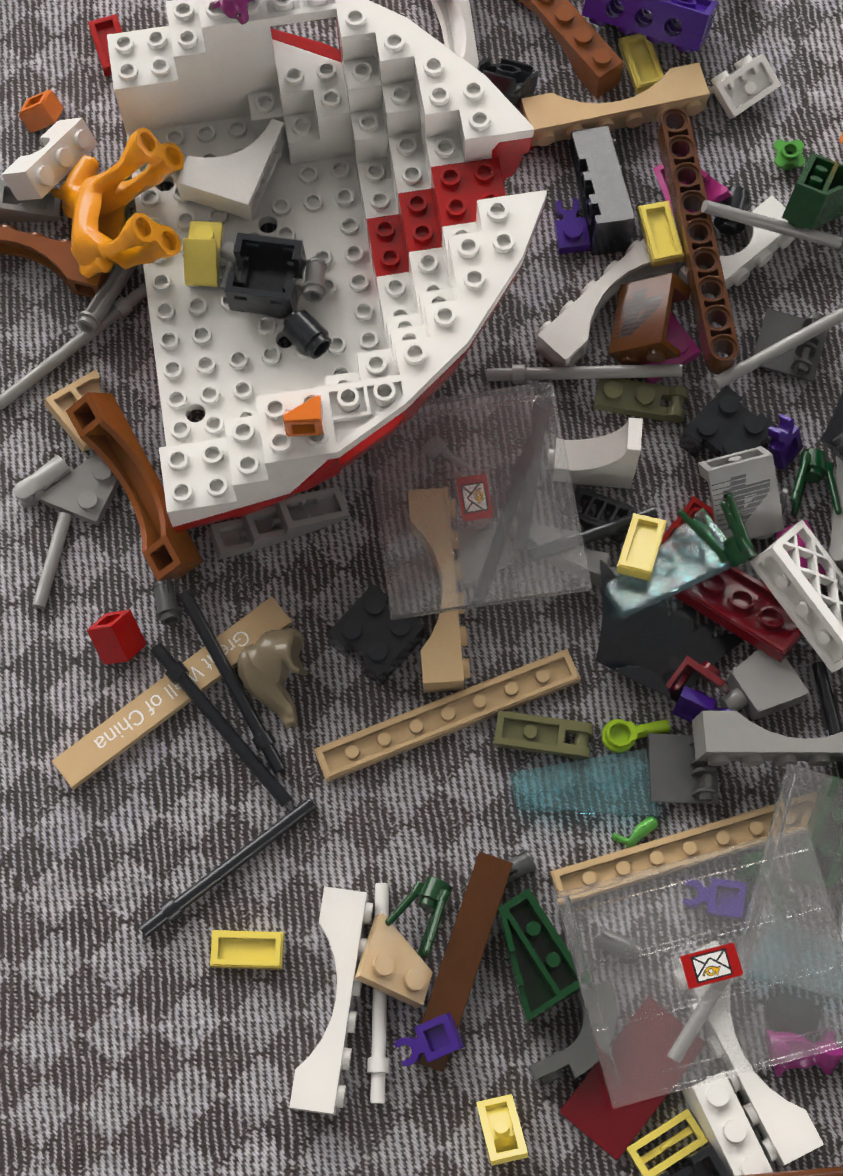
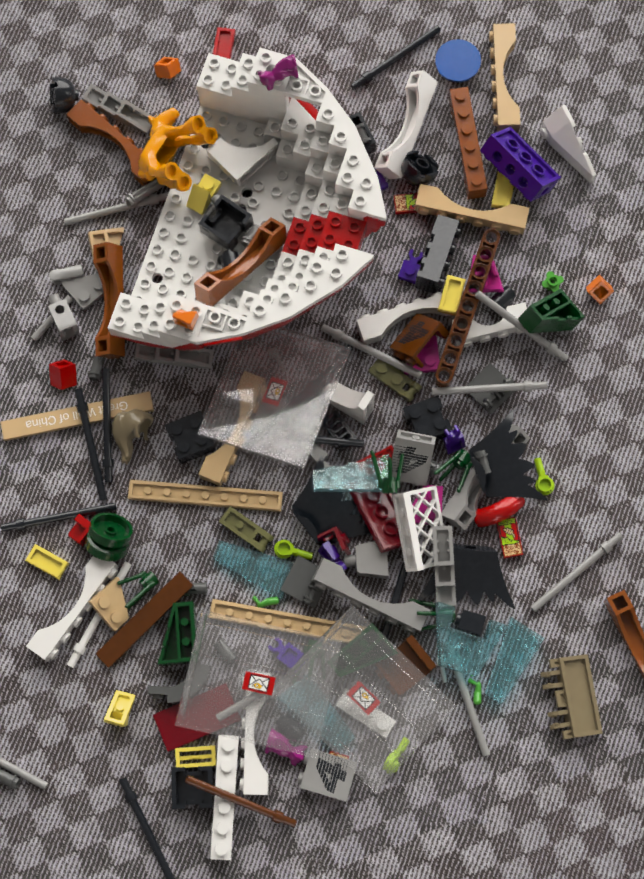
camera: 30 degrees right, 5 degrees up
(39, 172) = (145, 106): white arch -> none
(73, 547) = (64, 322): none -> light grey torso
(278, 868) = (80, 530): none -> red panel
(333, 854) = (108, 536): none -> dark green wheel
(343, 279) = (216, 284): none -> dark orange arch
(435, 1040) = (109, 649): dark purple plate -> none
(641, 546) = (343, 459): light yellow tile -> none
(745, 85) = (550, 231): white bracket -> none

